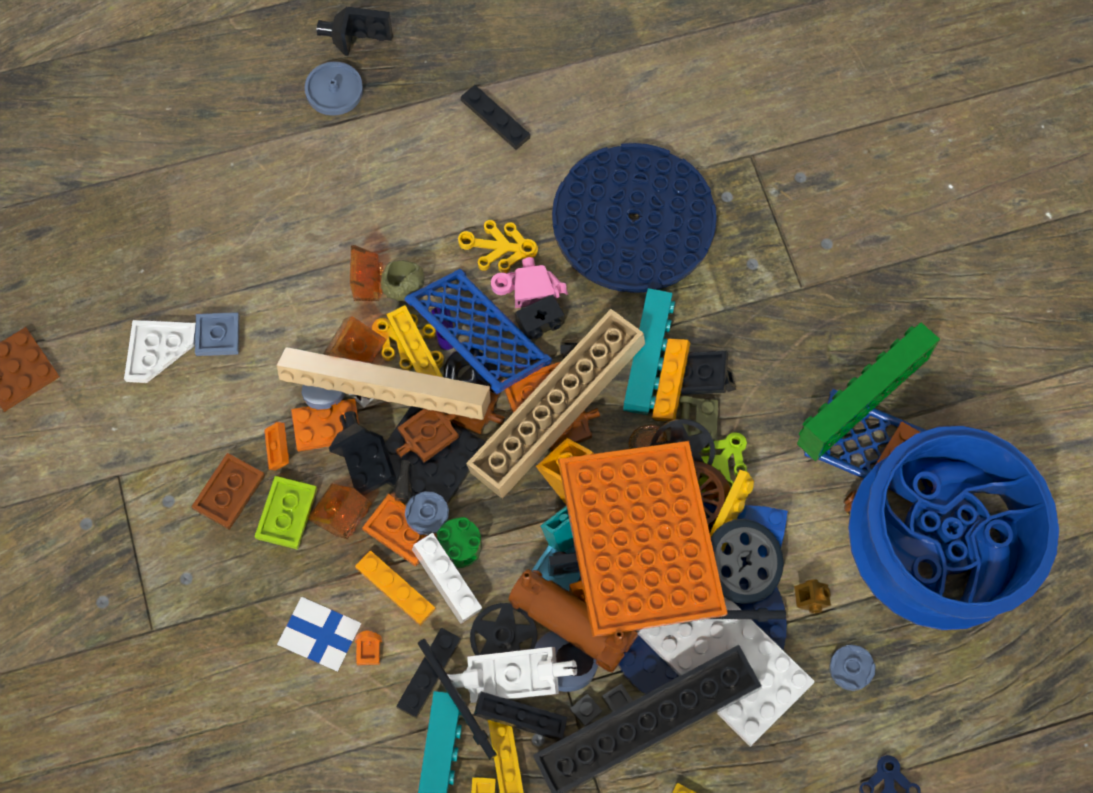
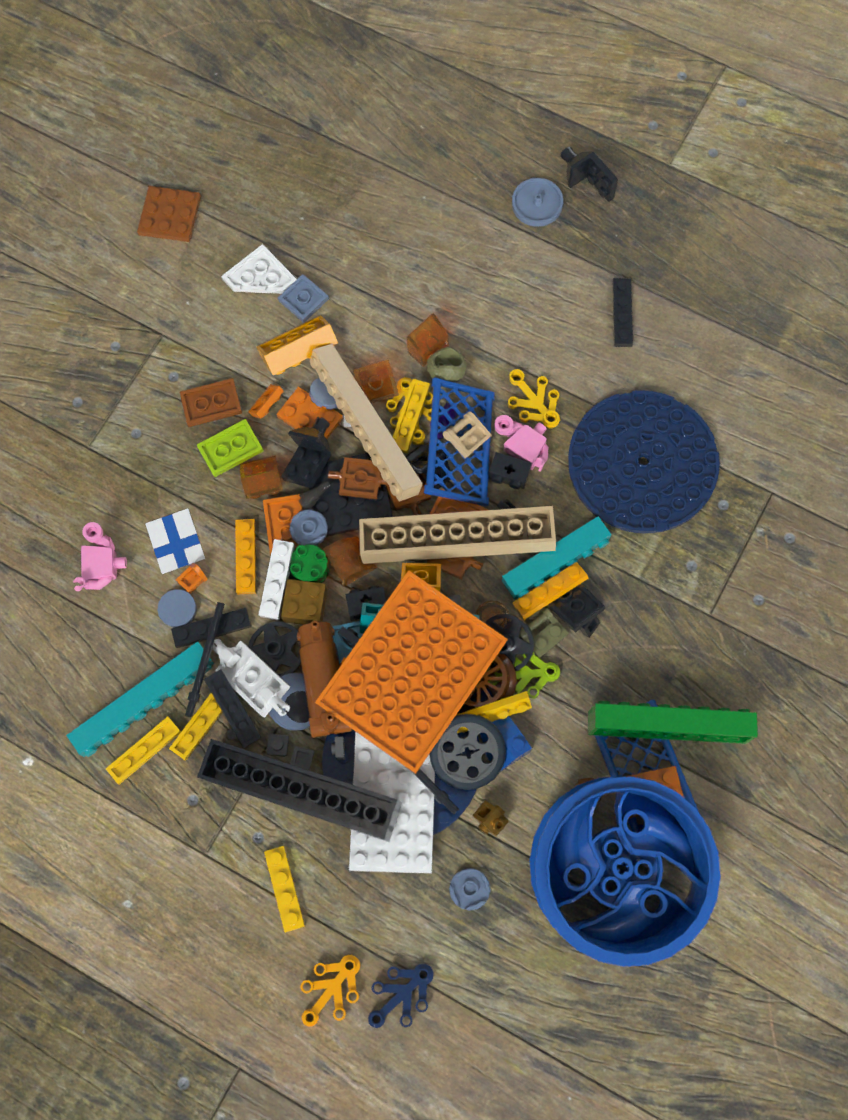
camera: 50 degrees right, 5 degrees up
(253, 376) = (296, 345): none -> light orange slope
(273, 711) = (98, 563): none -> bright pink torso
(382, 685) = (177, 608): none -> sand blue tile
(486, 508) = (346, 560): none -> clear orange slope
(487, 317) = (470, 440): none -> tan plate
(488, 575) = (304, 602): none -> pearl gold brick
(525, 534) = (355, 597): none -> black brick
(642, 659) = (338, 748): none -> dark grey plate

